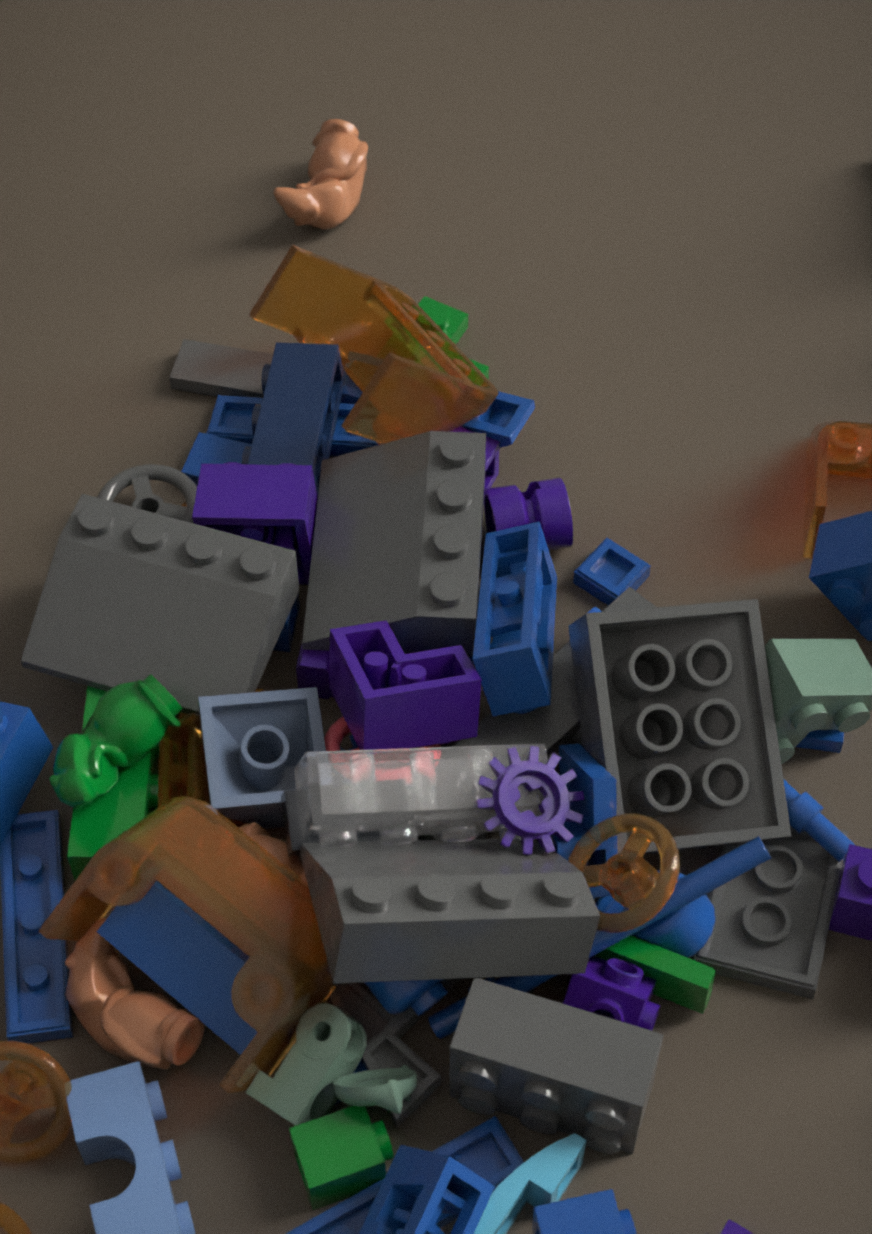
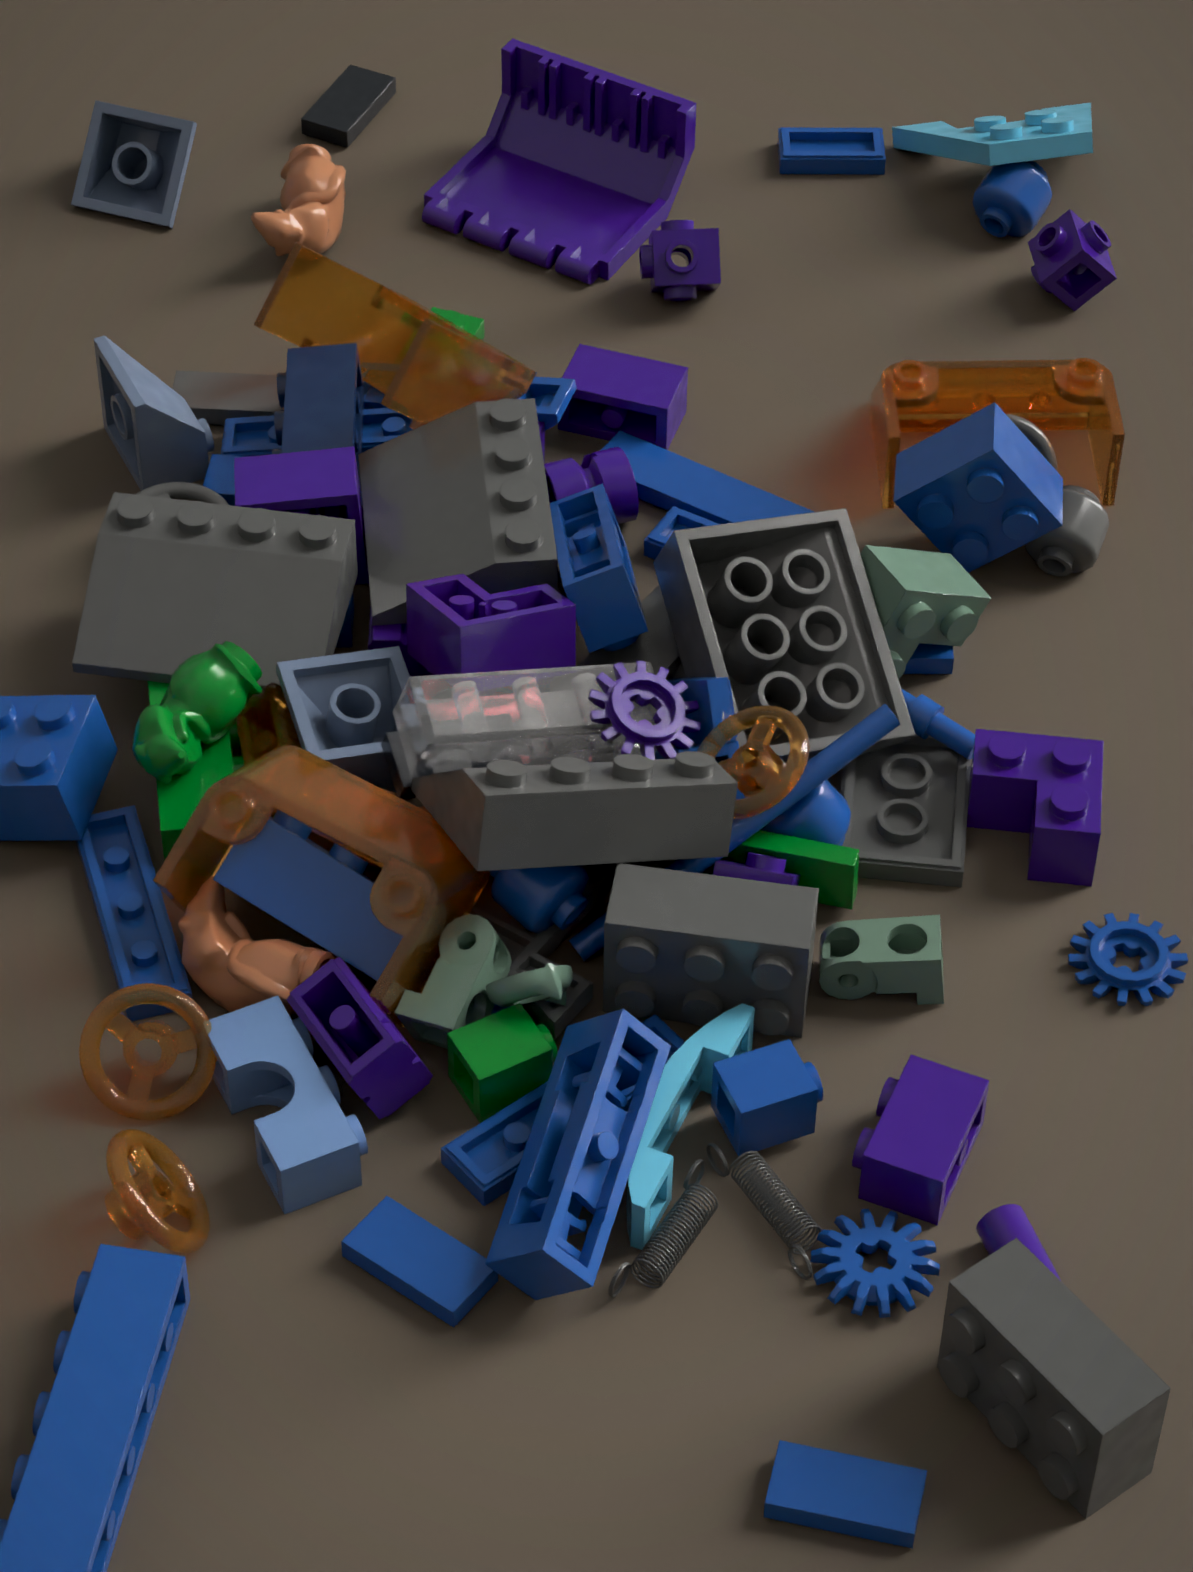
camera: 10 degrees left, 10 degrees down
(149, 398) = (149, 421): none -> sand blue slope
(184, 119) = (134, 164): none -> sand blue slope
(207, 1127) = (359, 1038): none -> dark purple brick
(388, 72) = (348, 105): none -> black tile
(568, 164) = (568, 166): none -> dark purple hinge
(581, 415) = (624, 395): none -> dark purple brick
(644, 529) = (679, 482): none -> blue tile
(676, 277) = (696, 246): none -> dark purple brick
(722, 1085) = (883, 958): none -> sand green leg
(815, 163) = (831, 151): none -> blue tile

